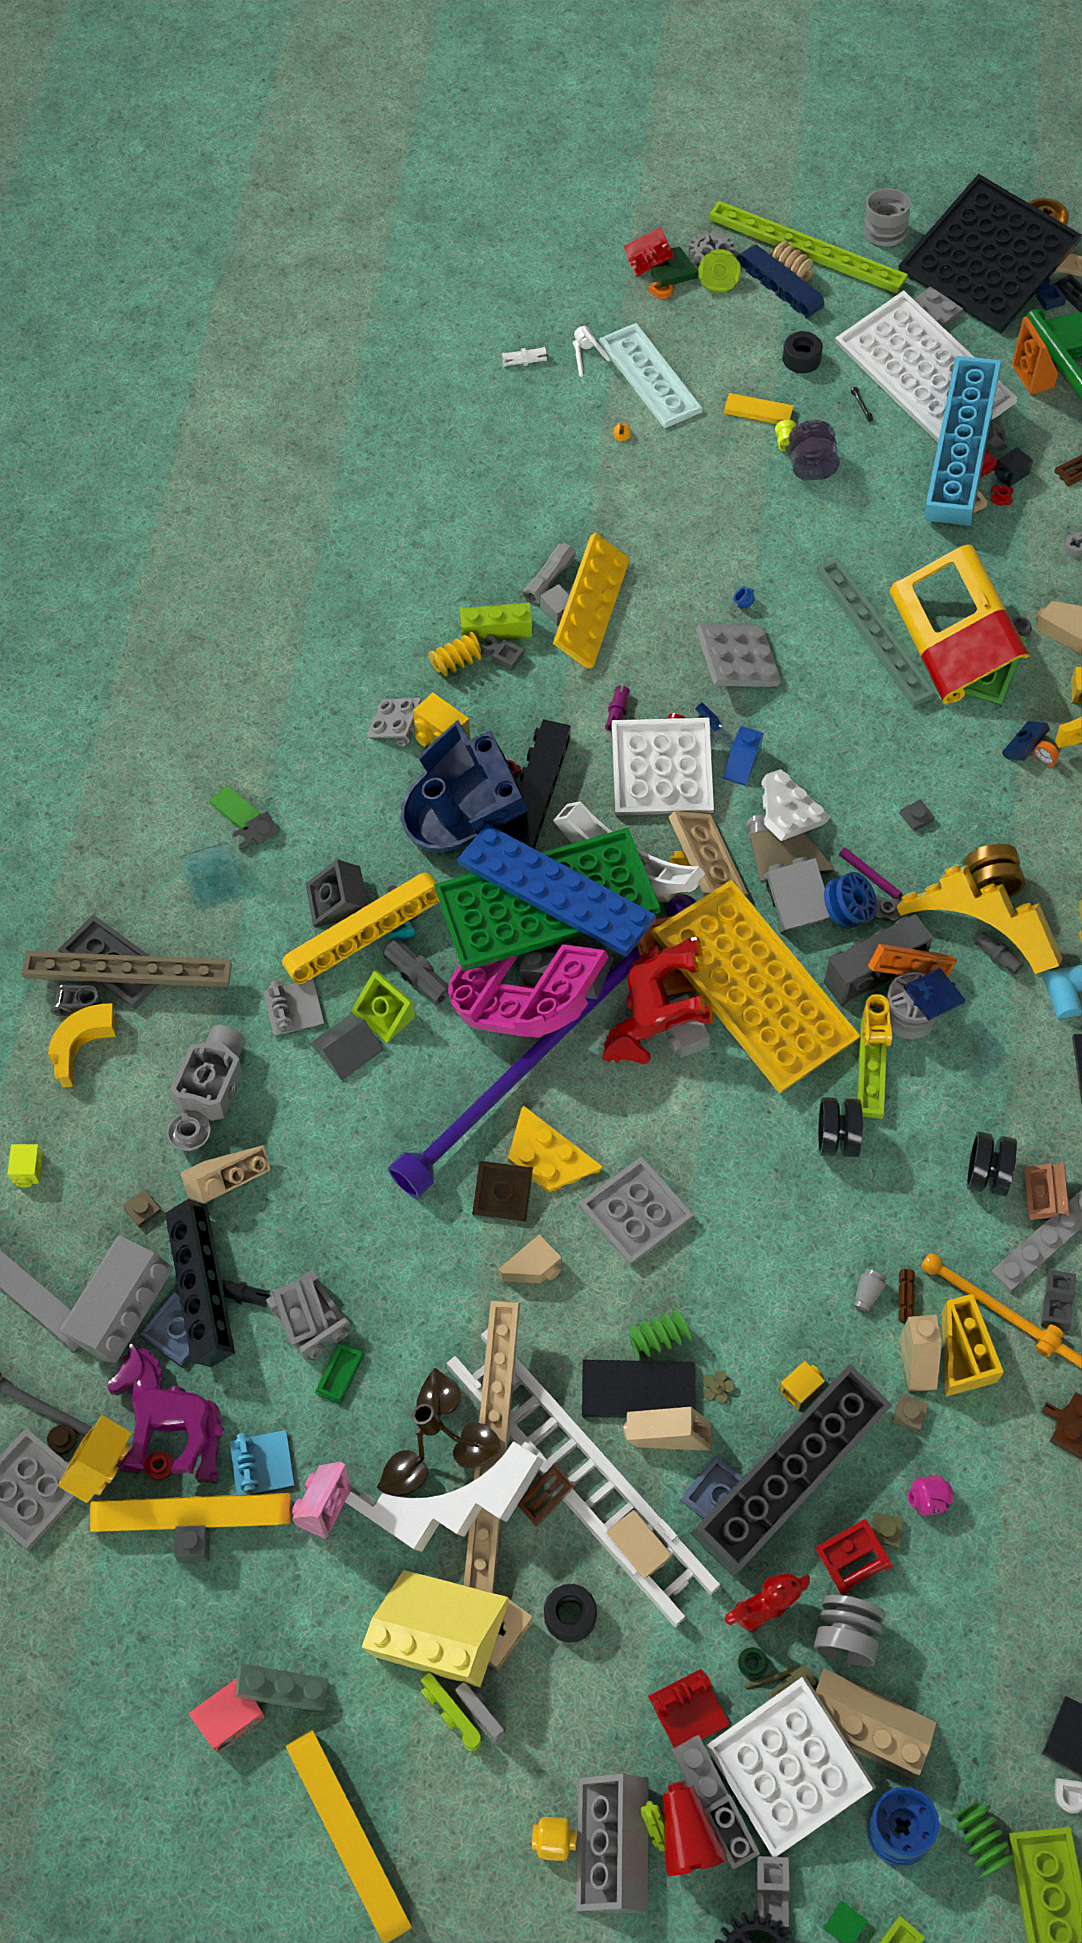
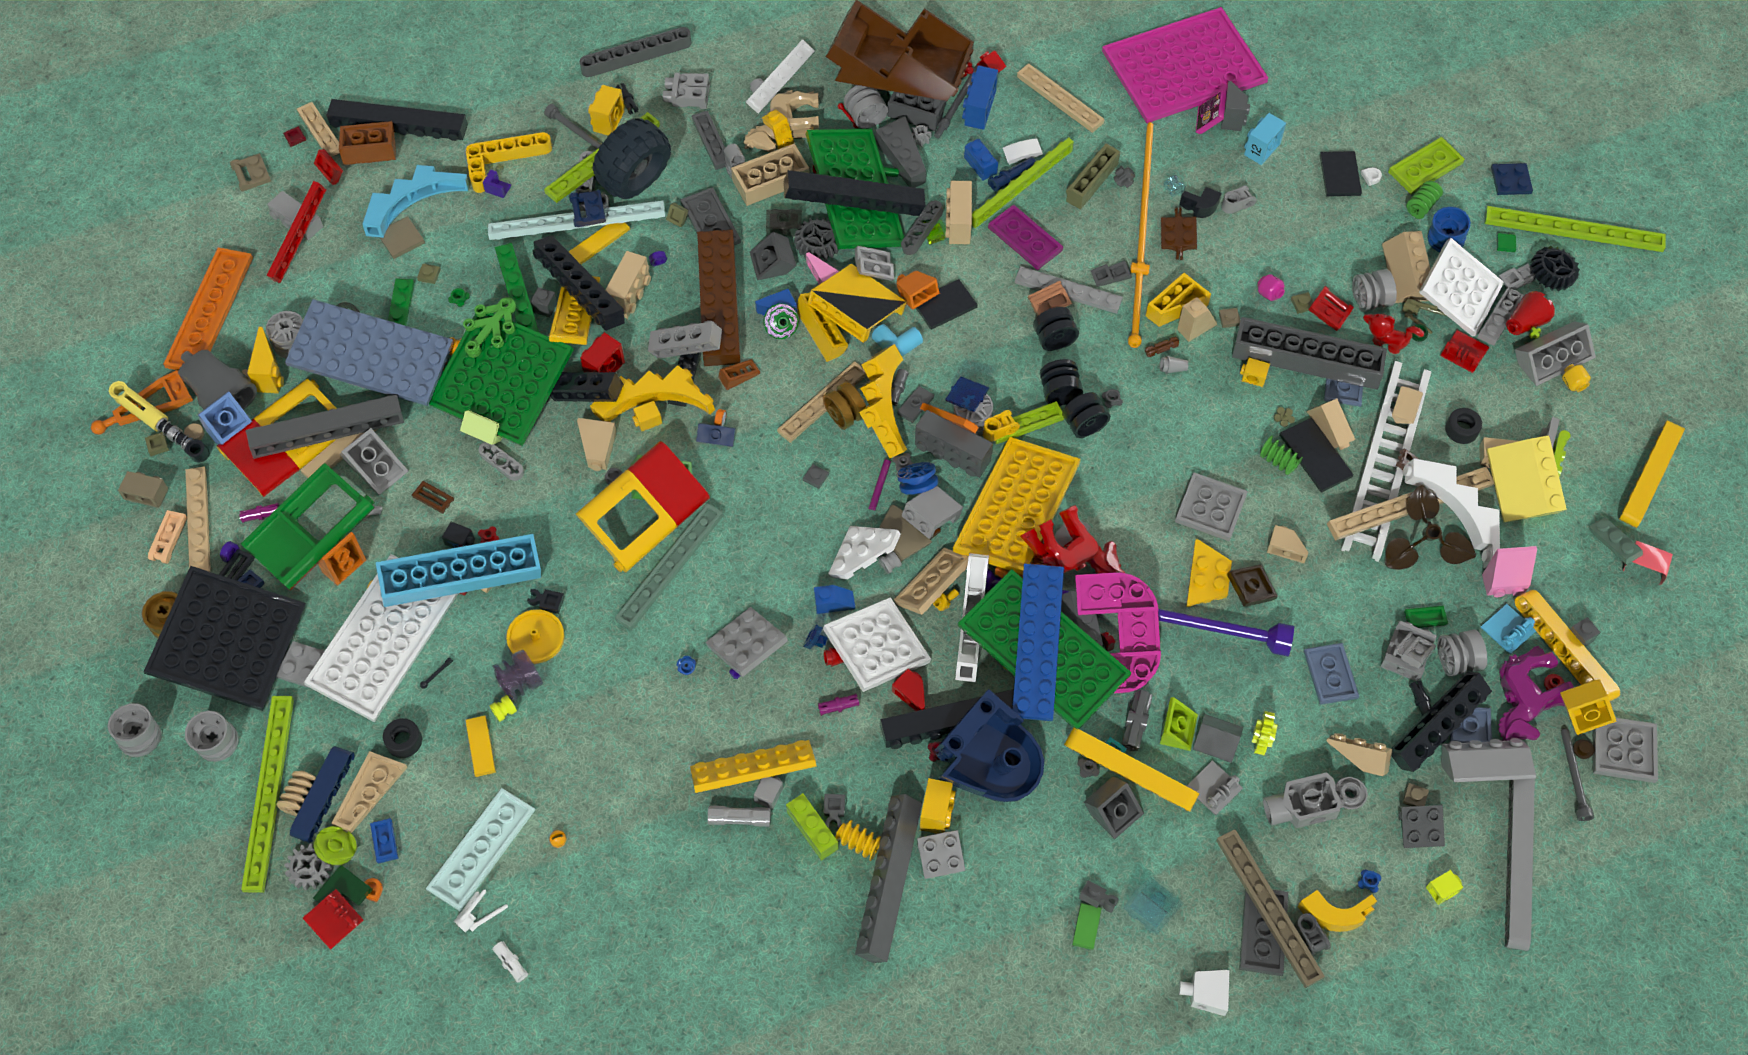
camera: 120 degrees left, 0 degrees up
(88, 1091) = (1369, 875): none -> blue plate
(93, 873) = (1208, 991): none -> white torso
(103, 1190) = (1422, 826): none -> dark grey hinge
(261, 1365) = (1462, 652): none -> light grey wheel
(312, 1079) = (1264, 733): none -> neon yellow gear
(341, 1213) = (1331, 673): none -> sand blue tile
(395, 655) = (888, 879): none -> dark grey brick
(587, 776) = (910, 689): none -> red slope
(703, 309) = (384, 840): none -> blue plate
(763, 313) = (367, 789): none -> tan wing
(856, 492) = (537, 633): none -> yellow piece
(857, 1181) = (1112, 393): none -> dark grey plate
(891, 515) = (549, 600): none -> black plate
(905, 1126) = (1061, 381): none -> black wheel
(926, 169) = (134, 730): none -> light grey wheel
(967, 967) = (911, 408): none -> dark grey plate
(1002, 831) = (815, 407): none -> tan tile

